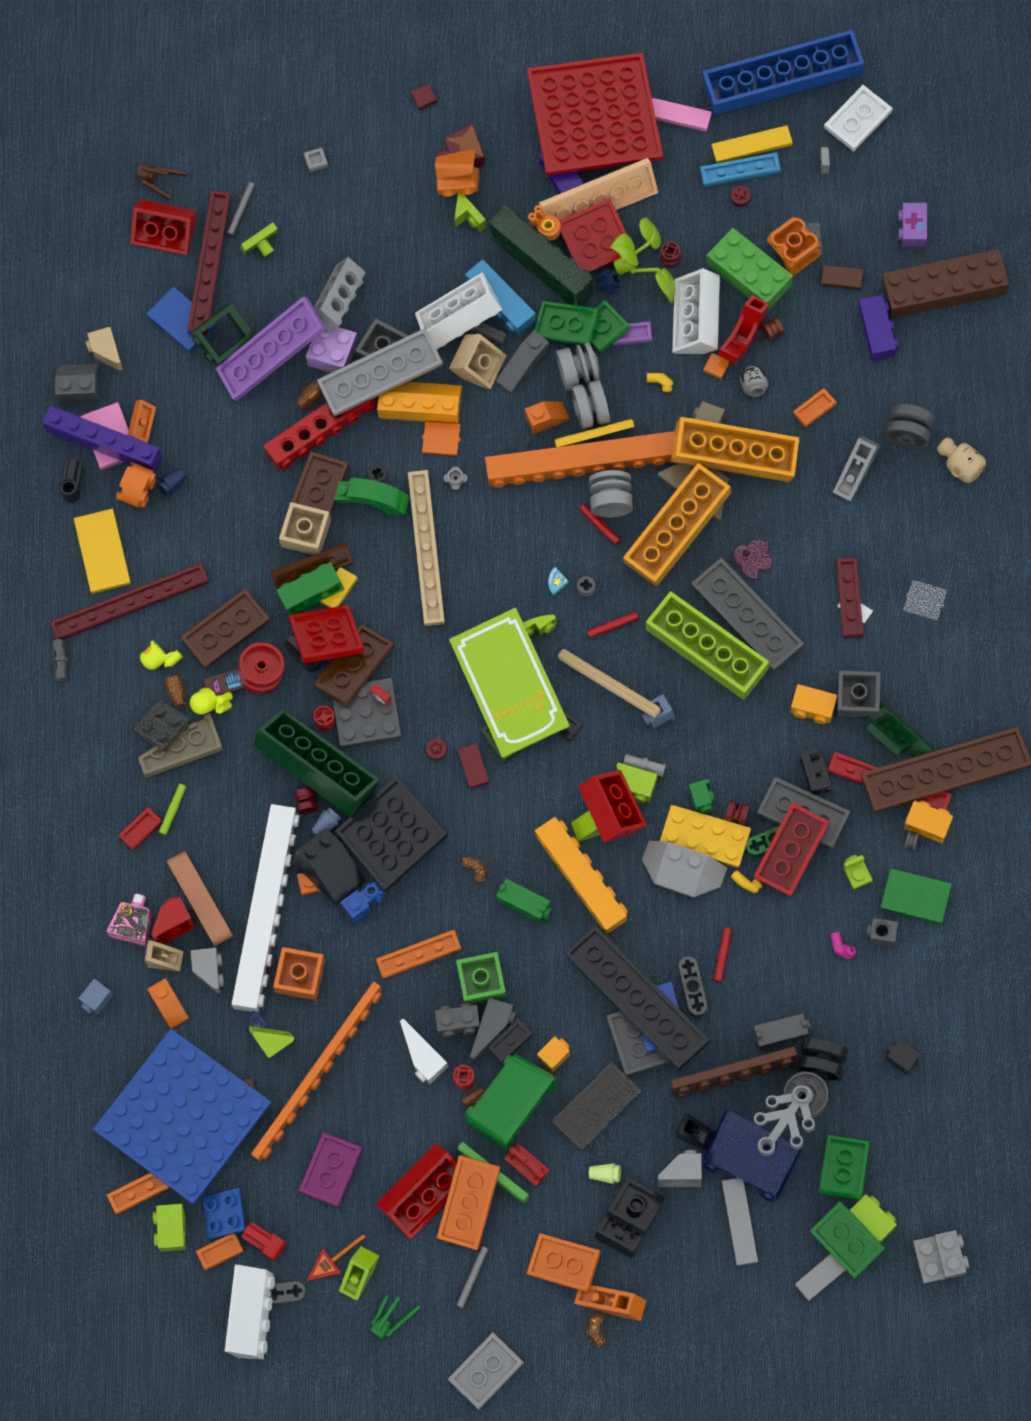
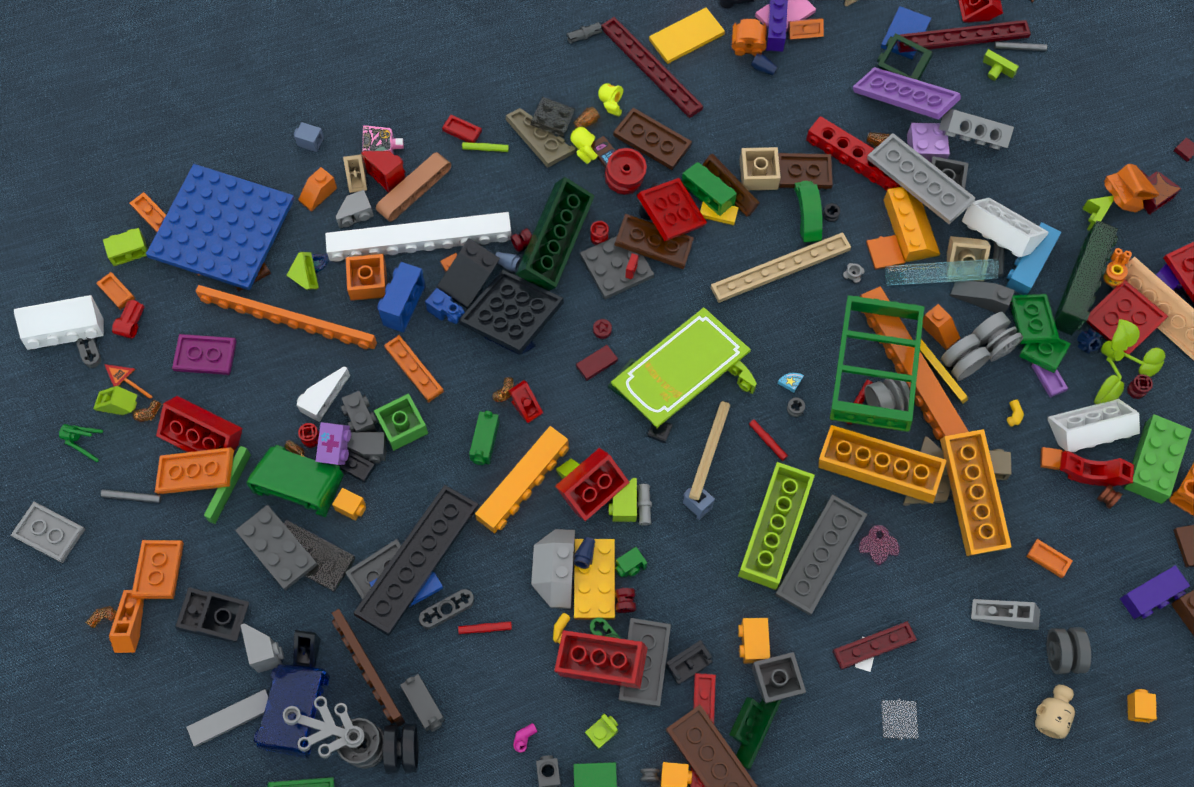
camera: 65 degrees right, 5 degrees down
(224, 1213) = (147, 282): blue hinge -> none
(316, 160) = (1090, 87): light grey tile -> none
(337, 942) = (401, 296): none -> blue brick
(383, 1242) = (147, 413): none -> clear orange arm
(486, 392) = (941, 272): none -> clear light blue tile
(488, 1049) = (333, 443): none -> medium lavender brick
(497, 849) = (525, 401): none -> red slope
(526, 1164) = (244, 509): red hinge -> none
(579, 1135) = (276, 547): none -> dark grey plate
(606, 1173) = (249, 582): yellowish green cone -> none
(629, 521) = (869, 414): none -> green window
(683, 836) = (584, 554): none -> dark blue cone
(754, 381) = (1050, 494): light grey head -> none
(977, 383) = (1141, 706): none -> light orange brick

